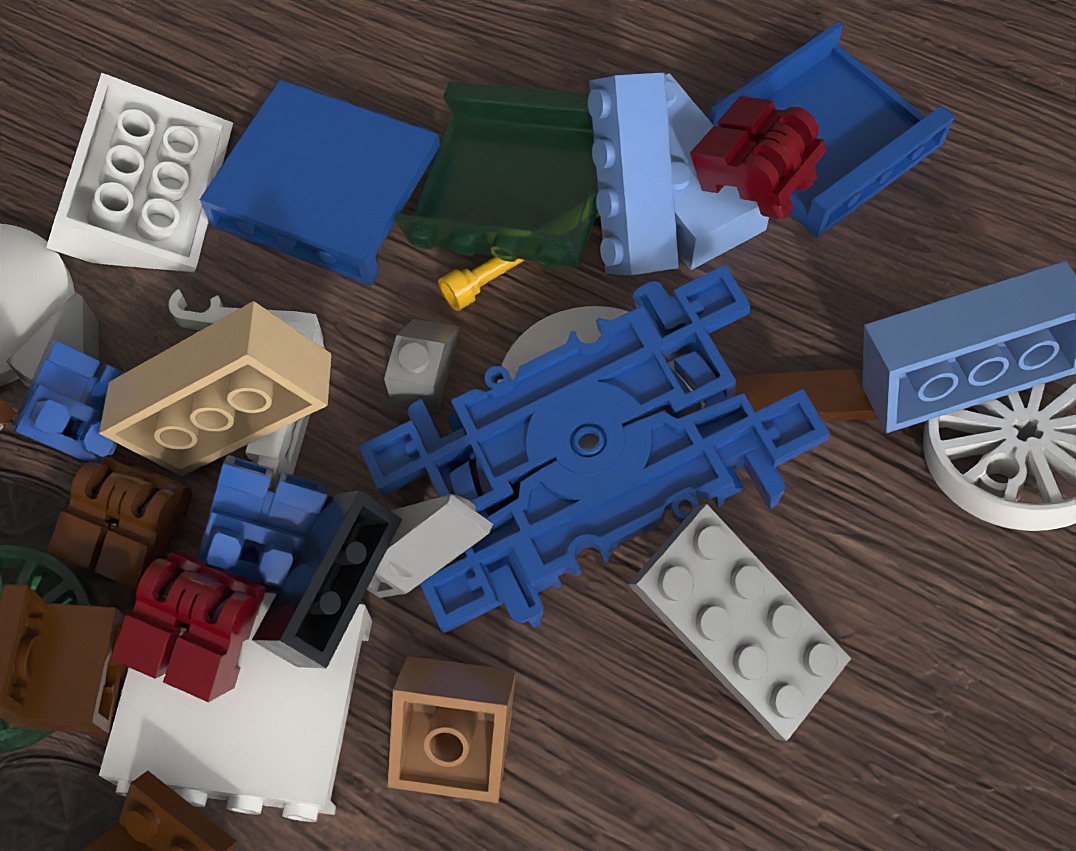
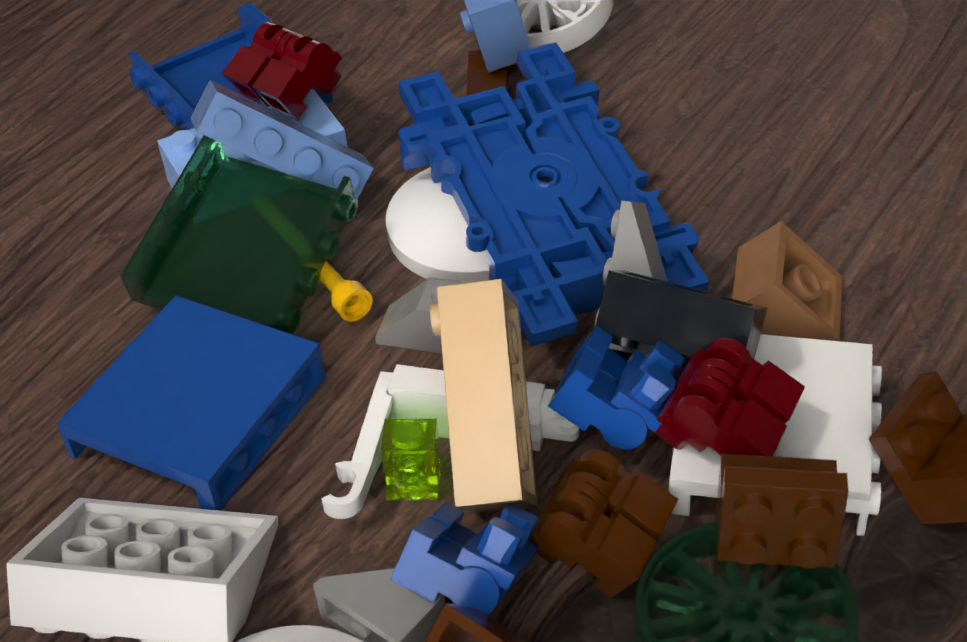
camera: 85 degrees left, 20 degrees down
(740, 622) = (693, 119): light grey plate -> none

